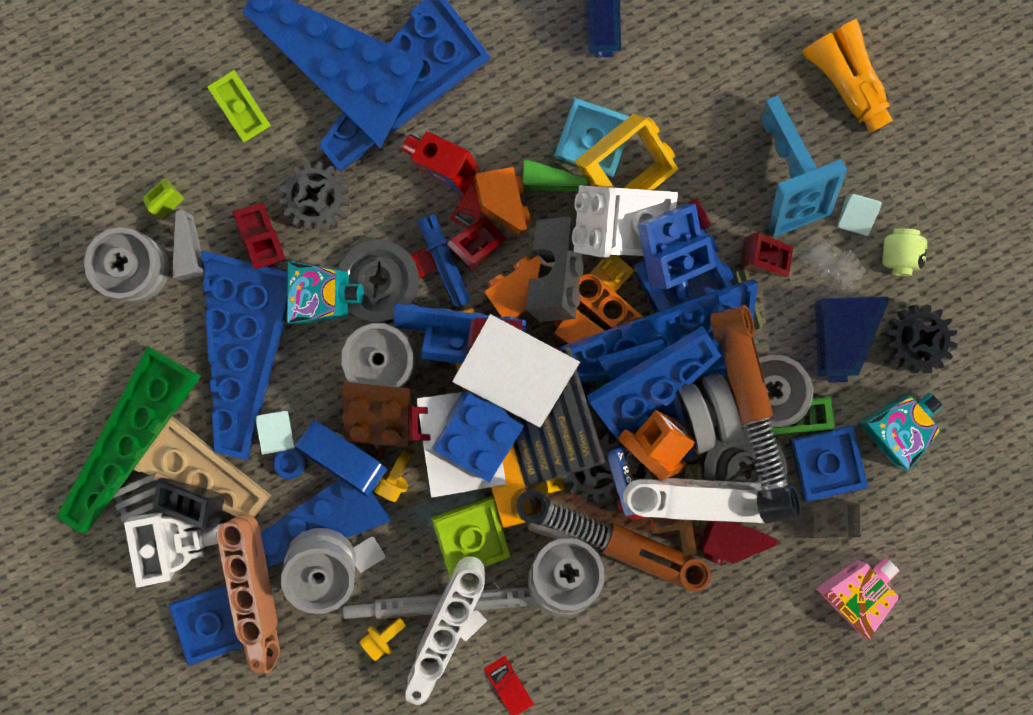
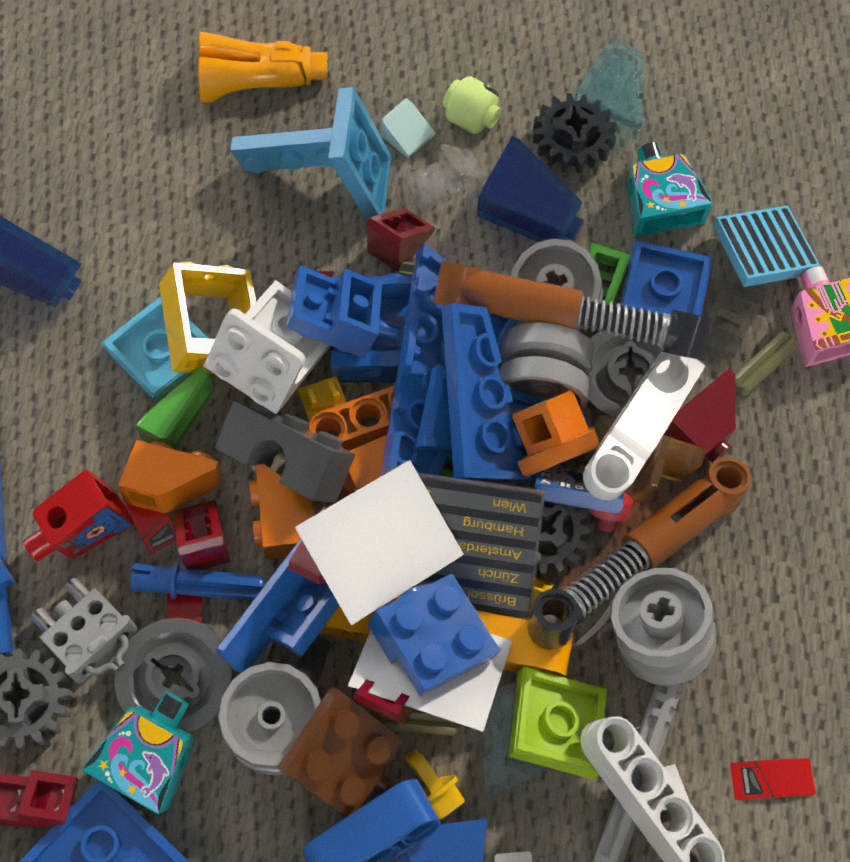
camera: 65 degrees left, 20 degrees down
(375, 220) = (86, 633): none -> light grey piece
(801, 560) = (764, 363): none -> olive axle
(897, 521) = (765, 245): none -> tile
(982, 350) = (617, 84): none -> clear light blue wing

